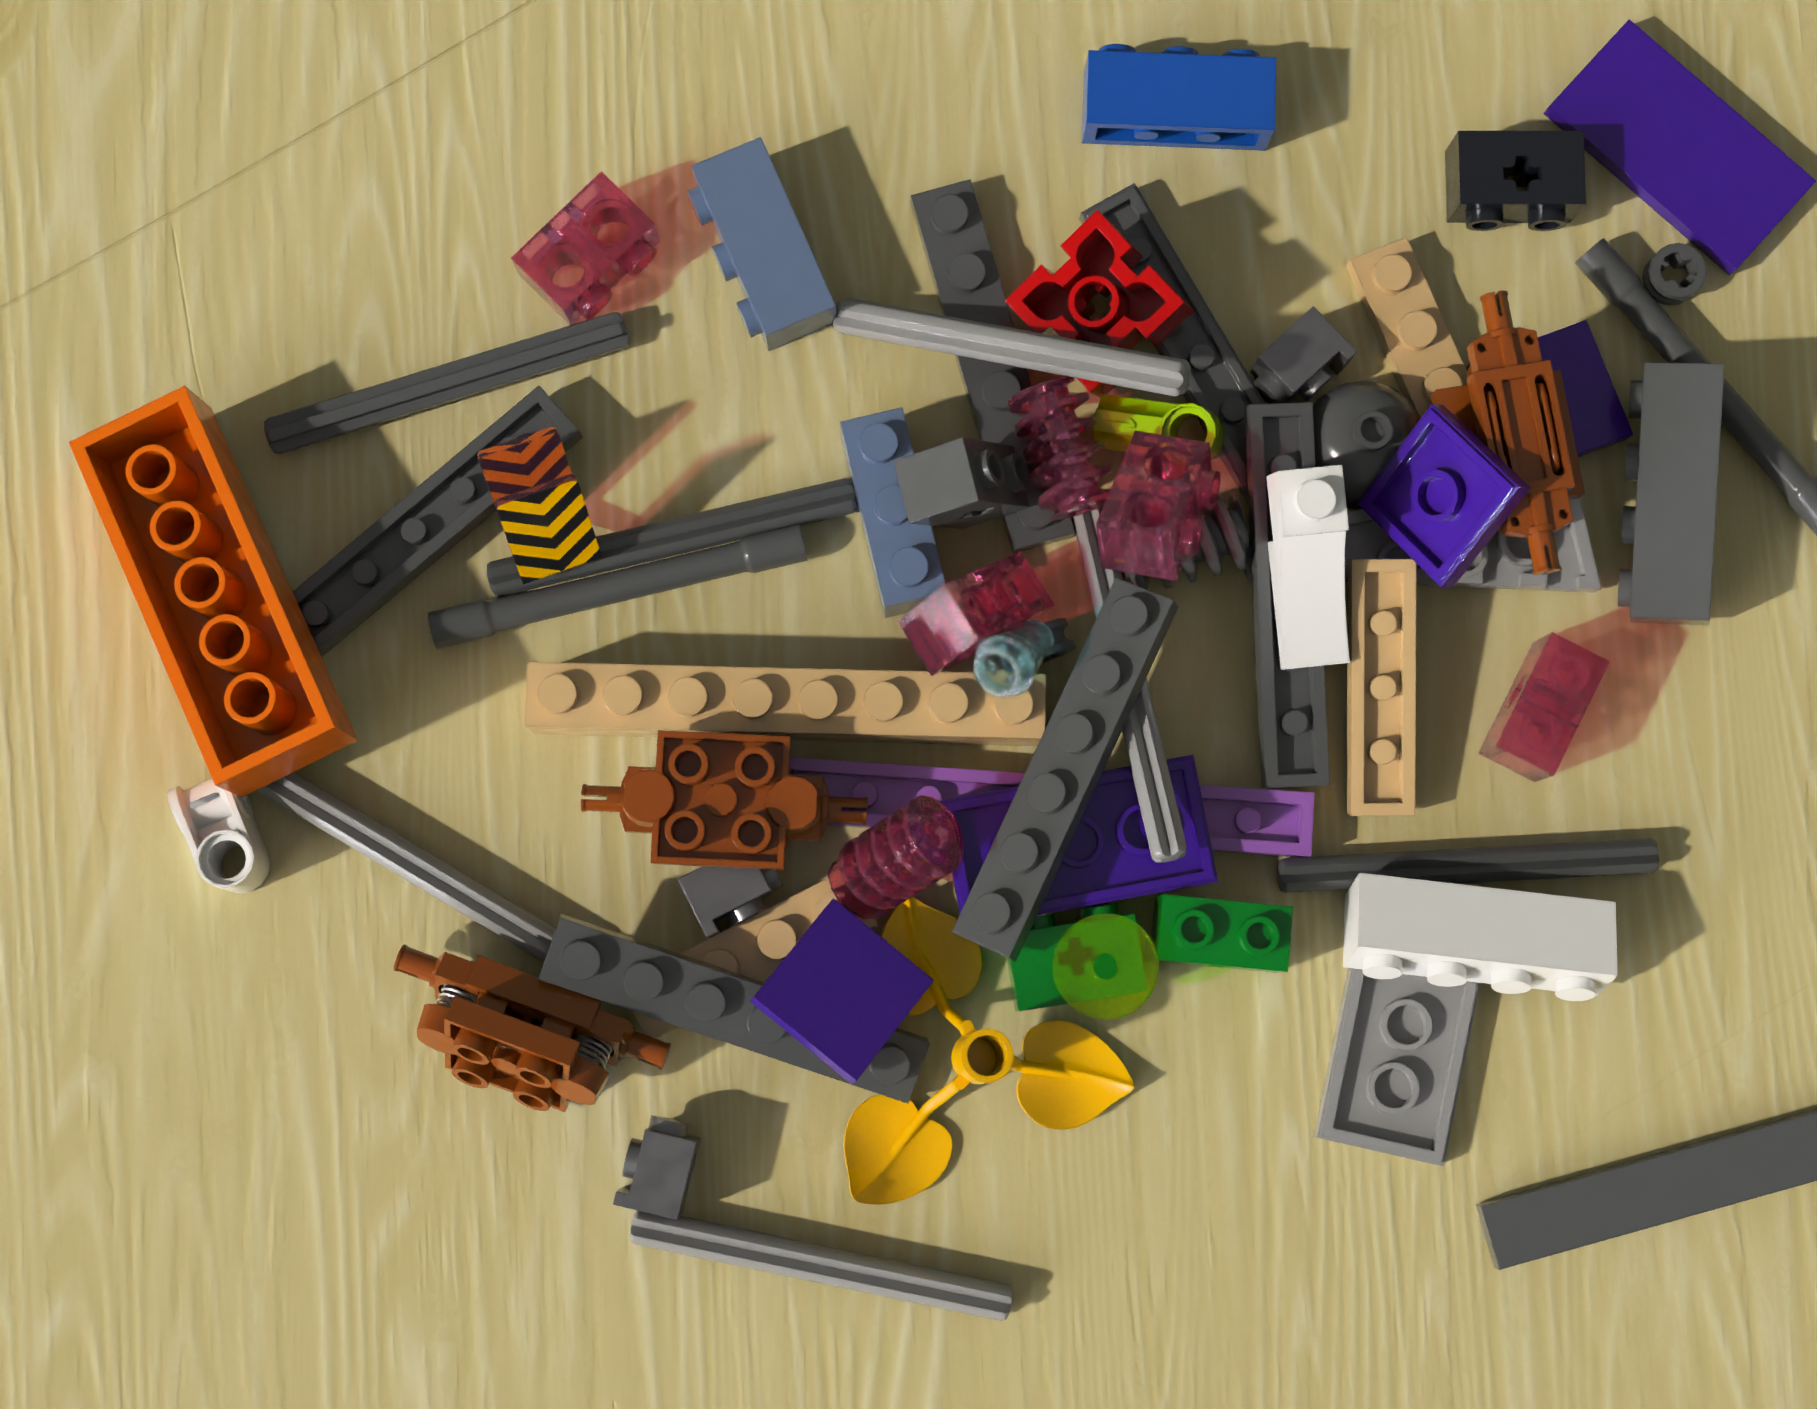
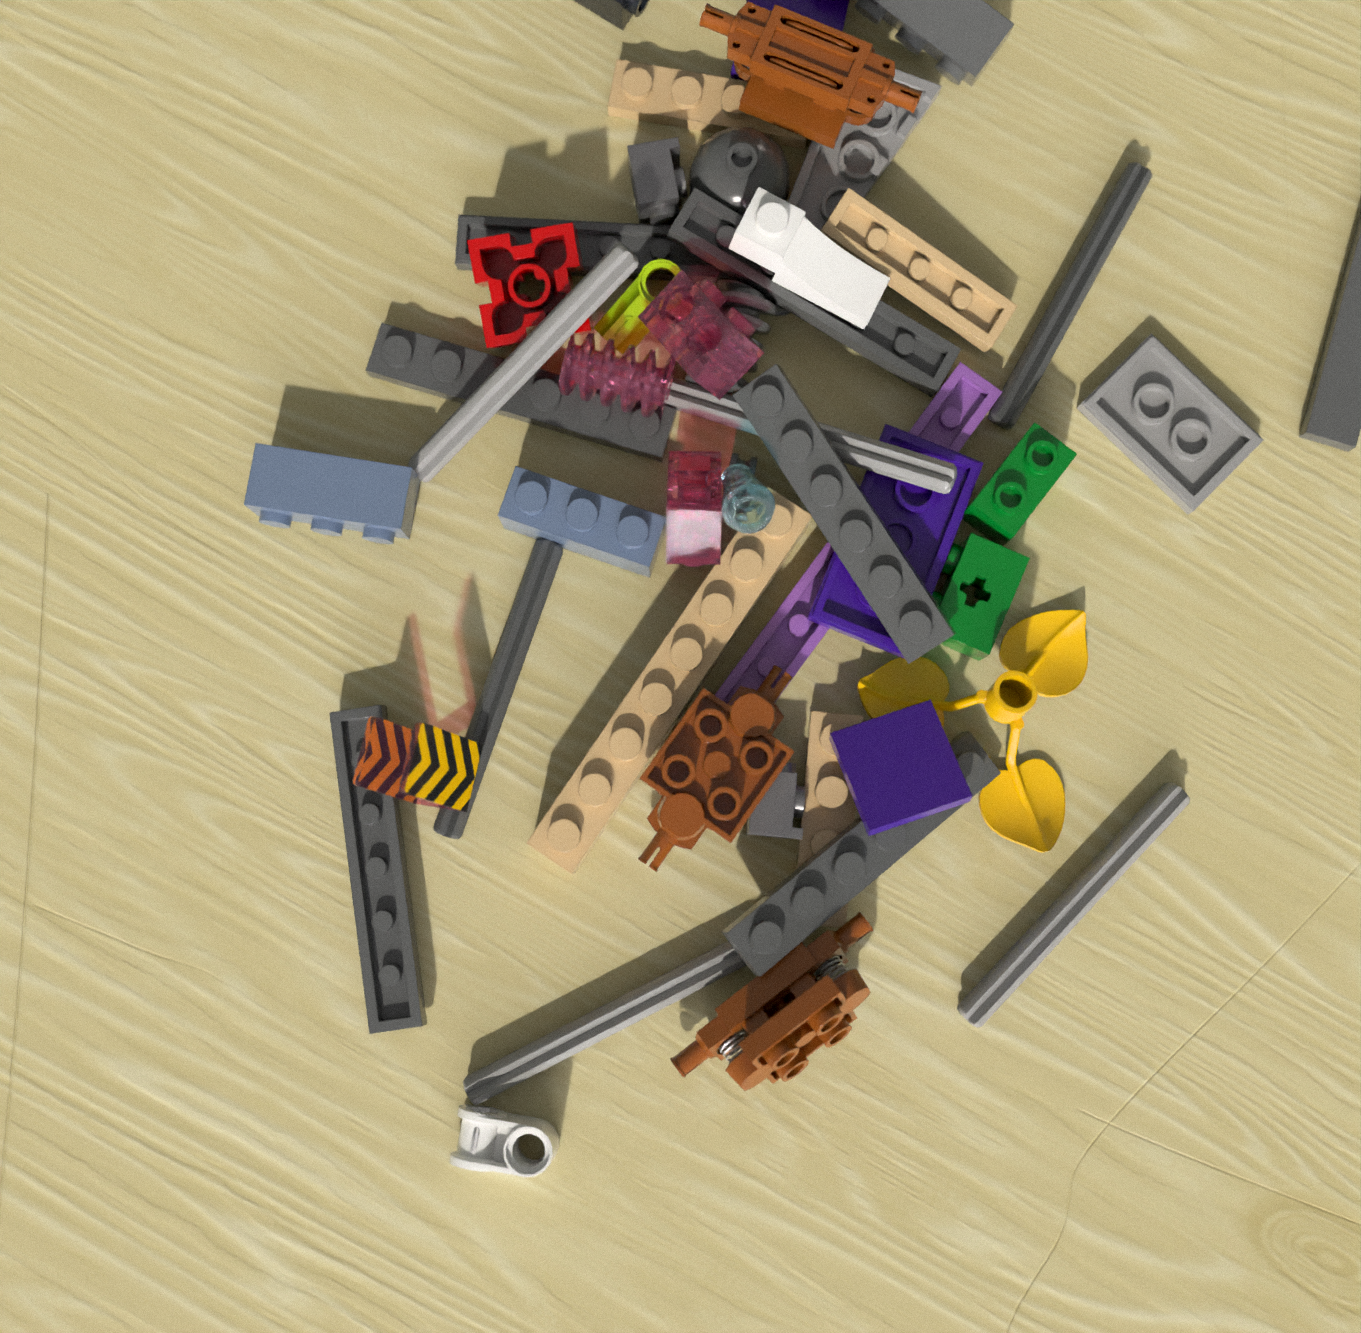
camera: 55 degrees left, 0 degrees up
(212, 592) = (326, 1041): orange brick -> none
(446, 383) = (282, 779): dark grey axle -> none
(486, 617) = (471, 854): dark grey piece -> none
(573, 240) = (241, 622): clear pink brick -> none
(659, 1169) = (942, 975): flat silver brick -> none
(897, 858) = (830, 670): clear pink piece -> none
(962, 483) = (597, 457): dark grey brick -> none
(1135, 972) = (1018, 562): clear neon green piece -> none
(1178, 98) = (420, 146): blue brick -> none
(1443, 495) = (819, 138): dark purple tile -> none
(1480, 936) = (1127, 314): white brick -> none
(1544, 707) = (998, 174): clear pink brick -> none

